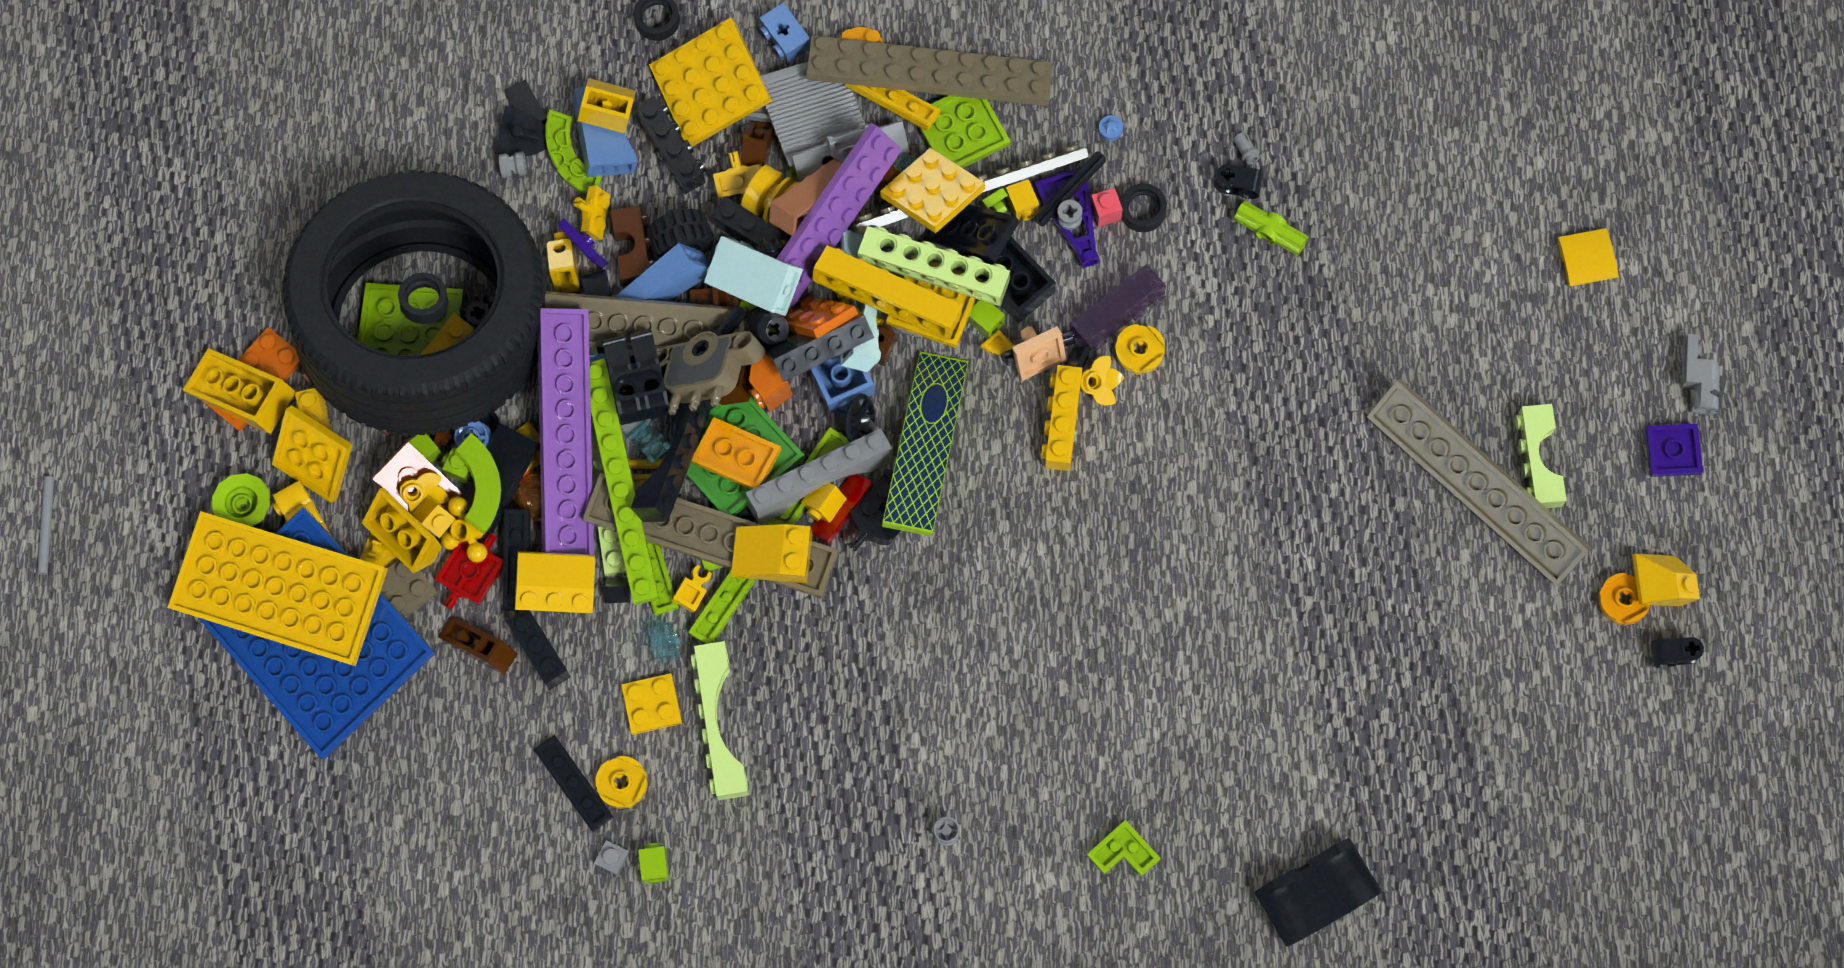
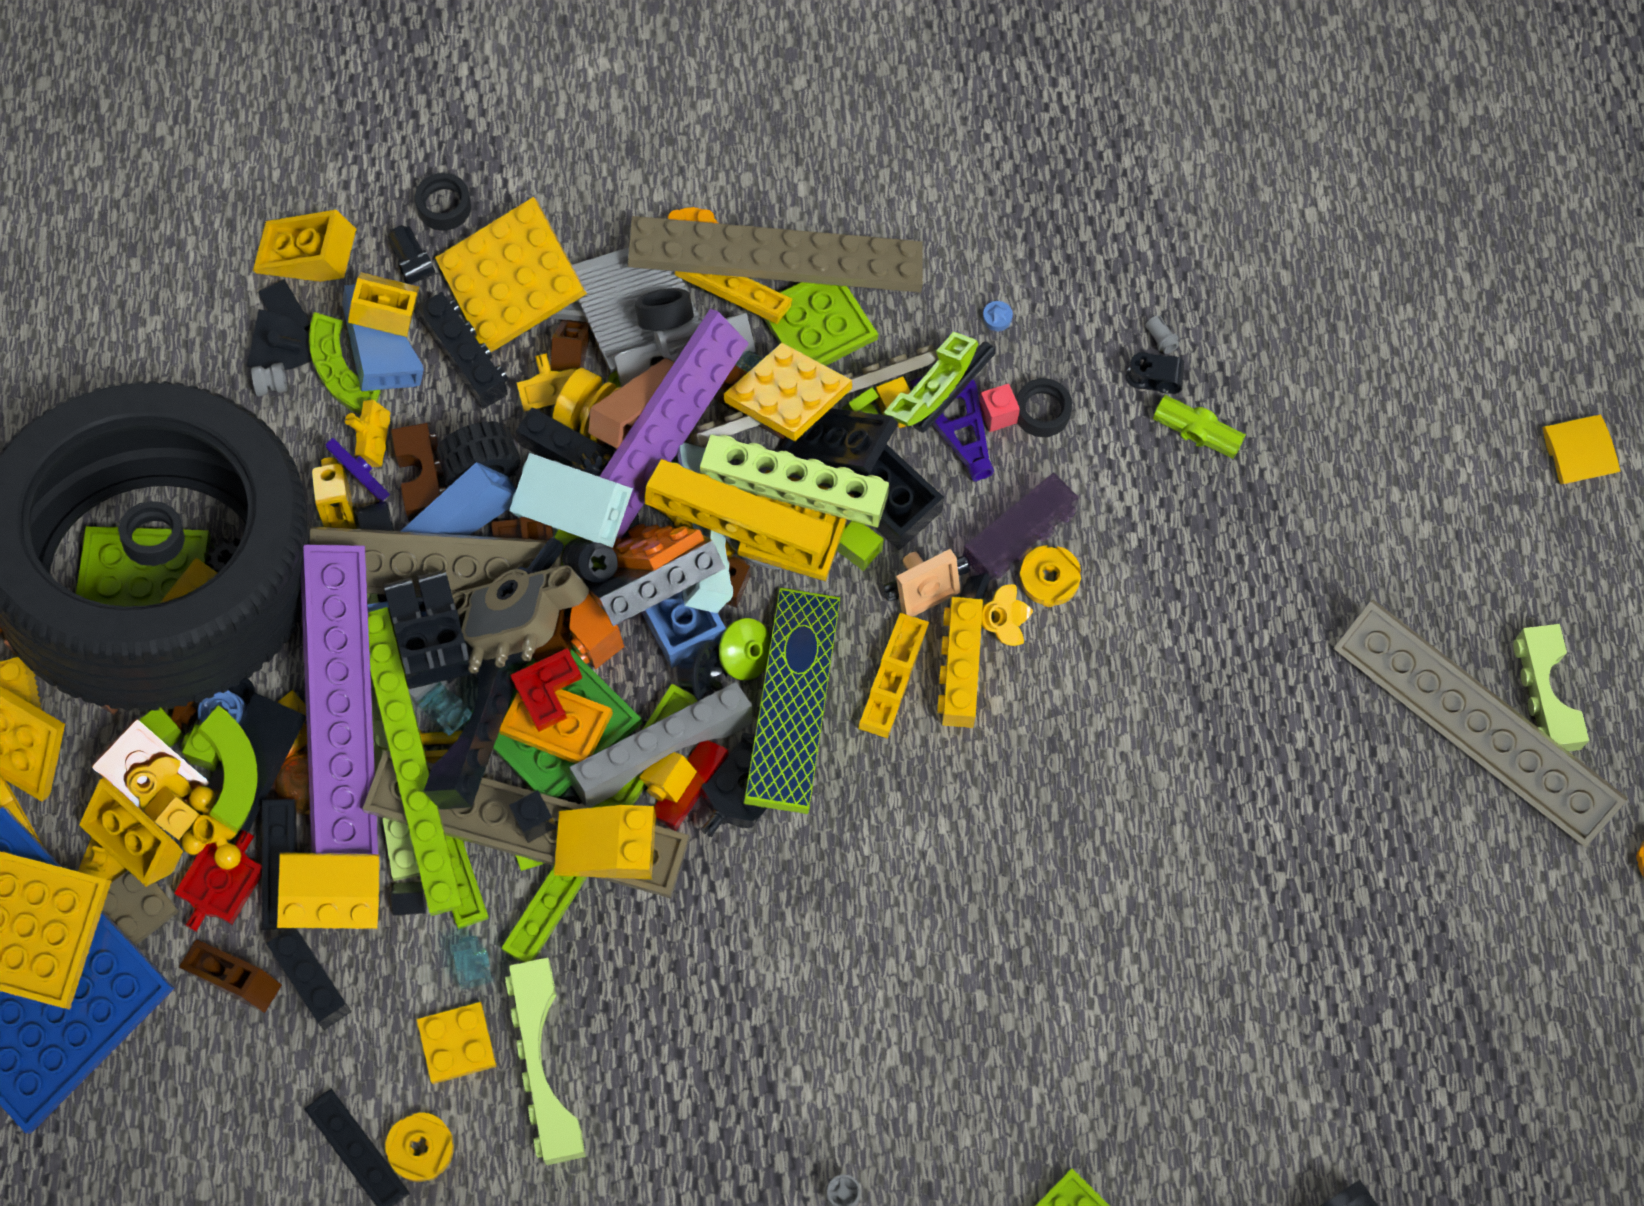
camera: 10 degrees left, 5 degrees down
(543, 52) = (306, 247): none -> yellow slope
(629, 64) = (411, 258): none -> black piece
(690, 591) = (503, 896): yellow plate -> none
(715, 530) = (532, 816): none -> black brick
(723, 426) = (538, 686): none -> red plate
(779, 21) = (599, 216): medium blue brick -> none
(834, 117) = (664, 309): none -> black tyre
(882, 397) = (736, 646): none -> lime dish
(997, 343) = (874, 575): yellow tile -> none
(1008, 426) = (893, 675): none -> yellow slope
(1055, 187) = (937, 384): none -> lime slope
(1069, 221) = (950, 421): light grey wheel -> none

